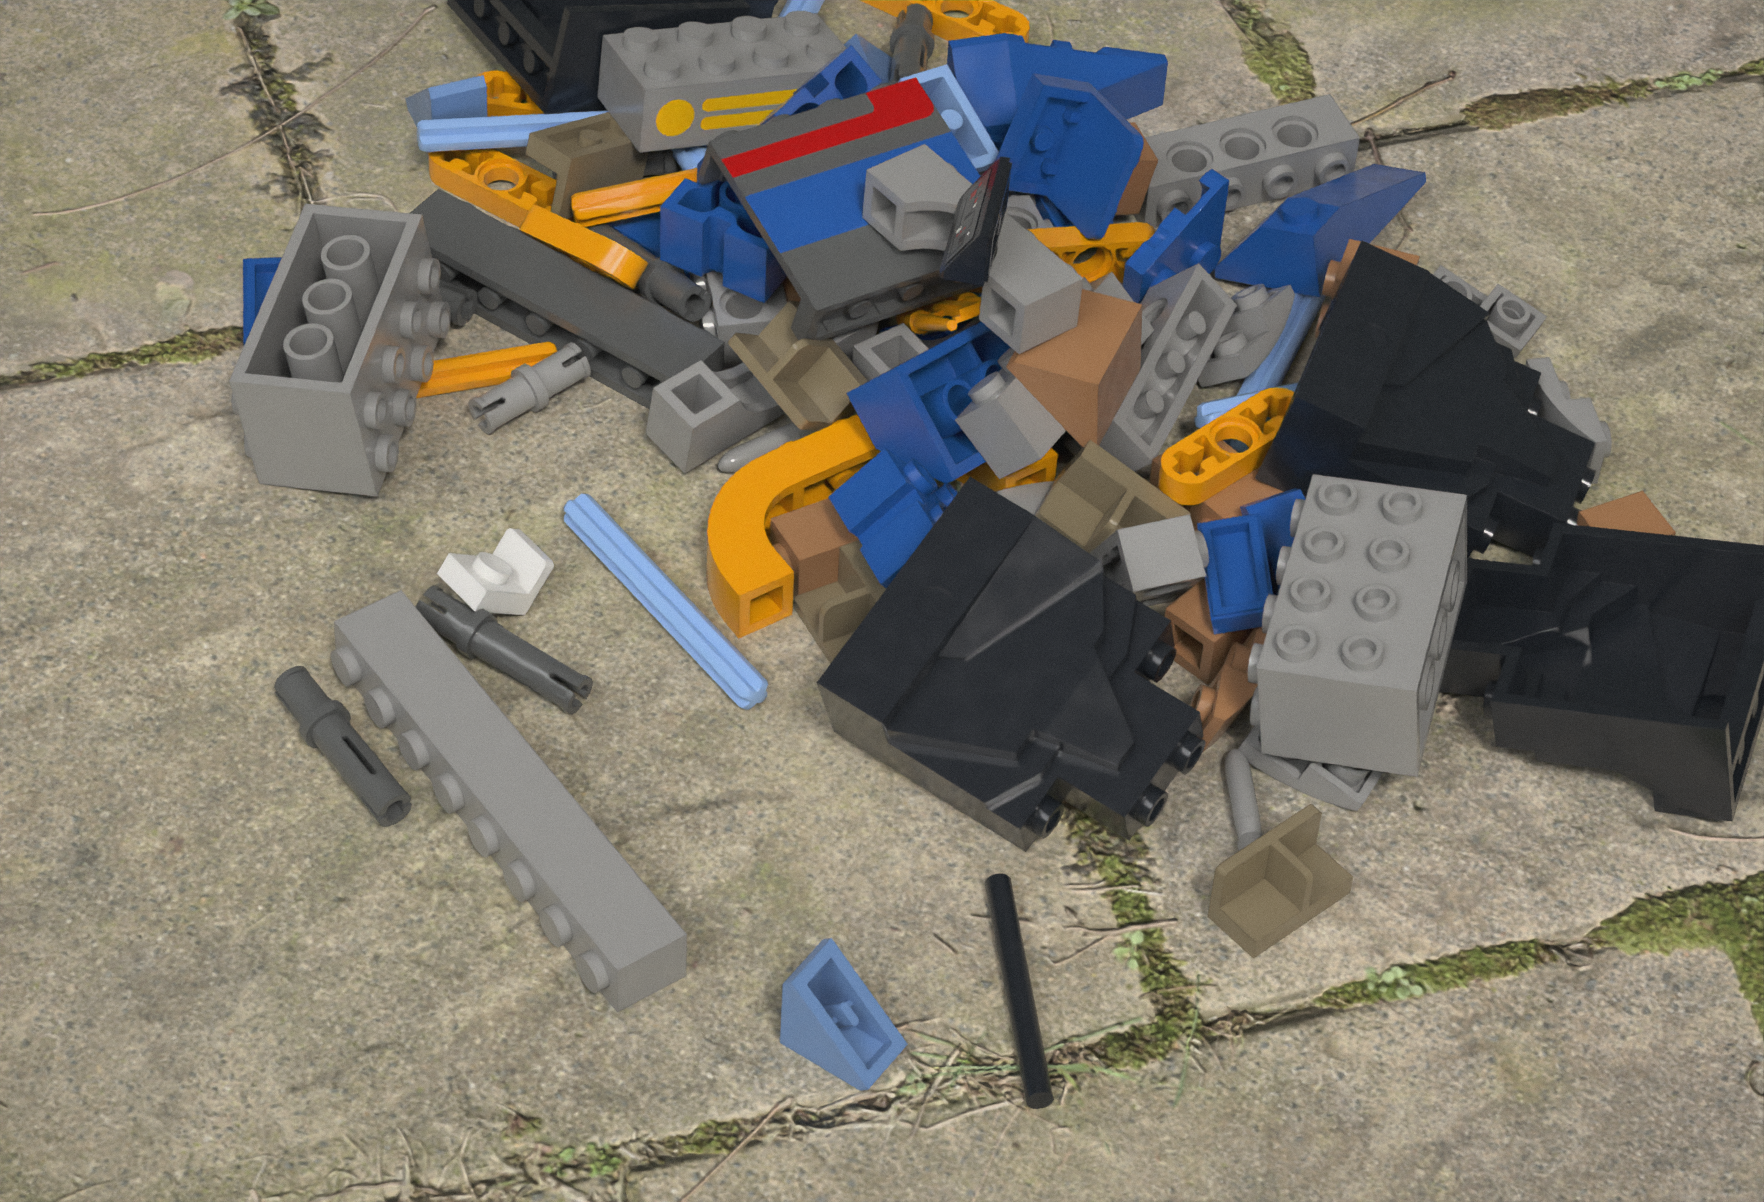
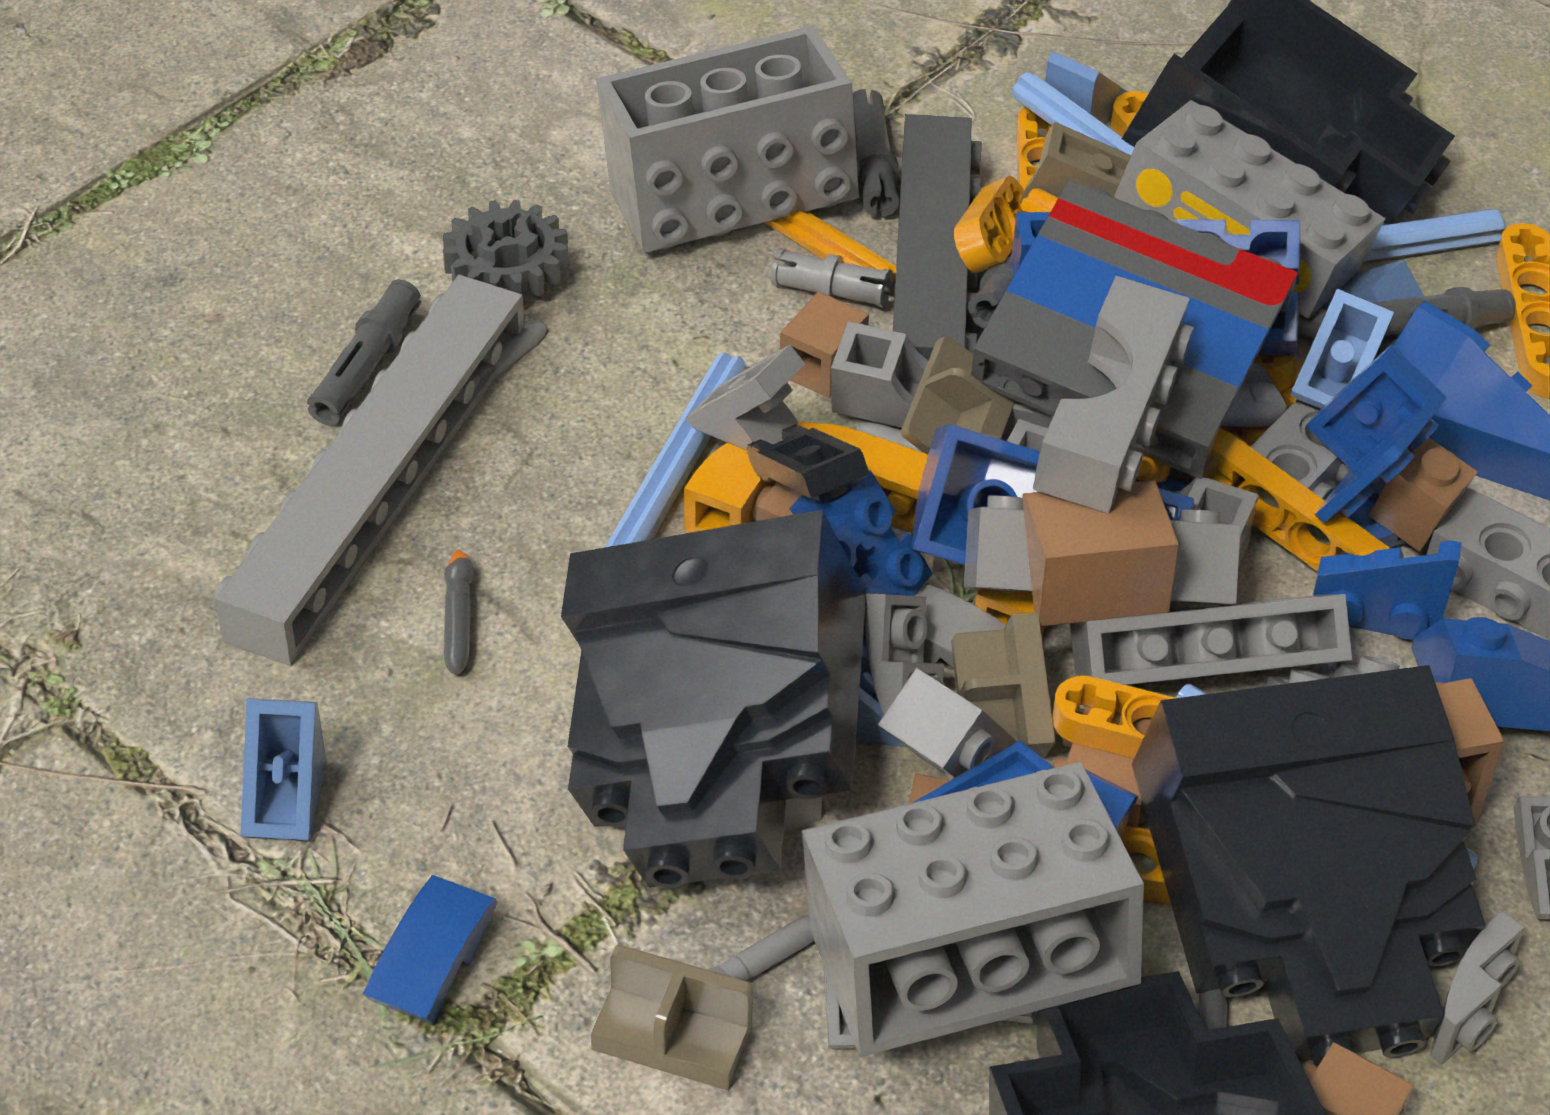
camera: 60 degrees right, 0 degrees up
(300, 583) = (507, 248): none -> dark grey gear
(483, 637) = (539, 374): dark grey pin -> none
(501, 580) = (598, 350): white bracket -> none
(615, 432) = (816, 338): none -> medium nougat brick
(684, 810) = (458, 579): none -> dark grey piece
(695, 495) = (751, 402): none -> light grey slope
(826, 486) = (808, 462): none -> black hinge
(977, 226) = (1099, 365): black slope -> none
(1019, 992) = (397, 900): black bar -> none
(1099, 1004) = (428, 948): none -> blue slope

